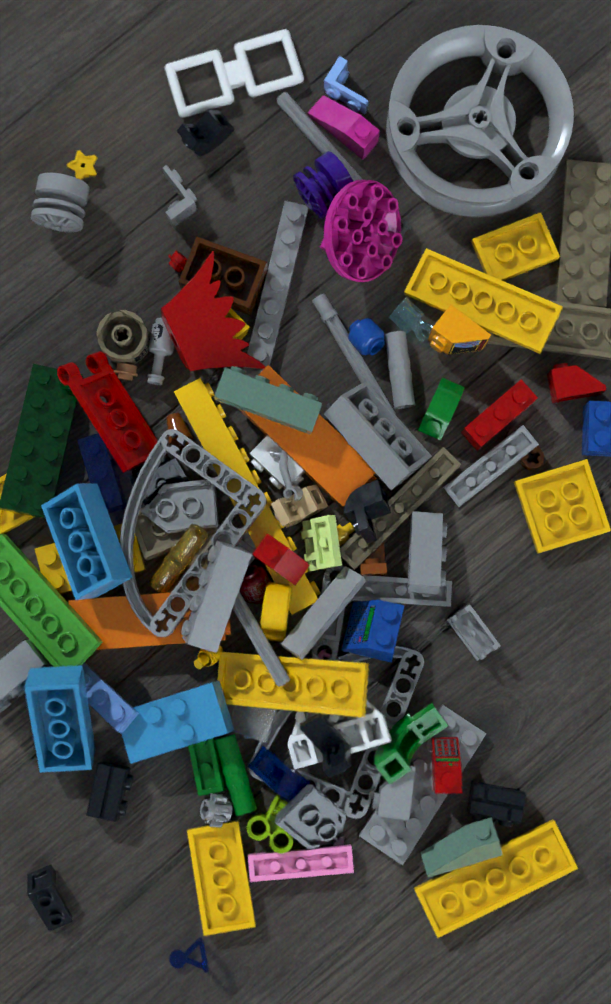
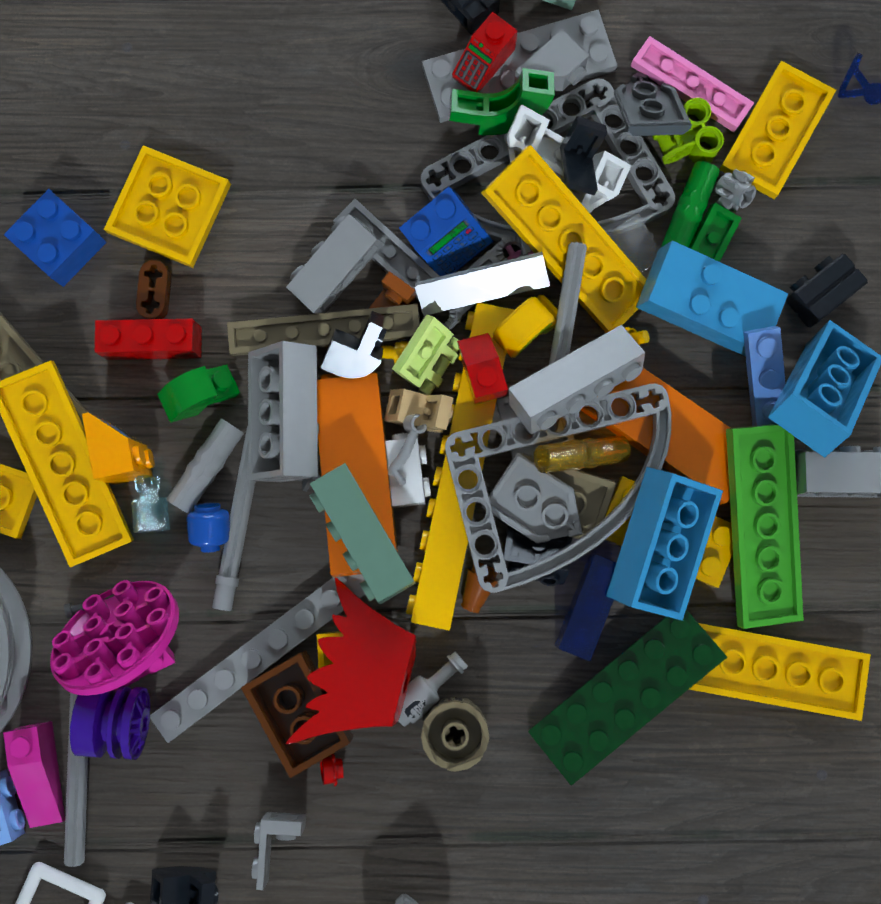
camera: 140 degrees left, 0 degrees up
(116, 420) = (530, 649): red hinge -> none
(126, 371) = (480, 696): medium nougat plate -> none
(254, 584) = (524, 365): dark red head -> none
(278, 774) = (650, 172): clear blue slope -> none
(473, 632) = (354, 159): light grey hinge -> none
(491, 466) = (199, 298): light grey tile -> none
(572, 383) = (52, 313): red slope -> none

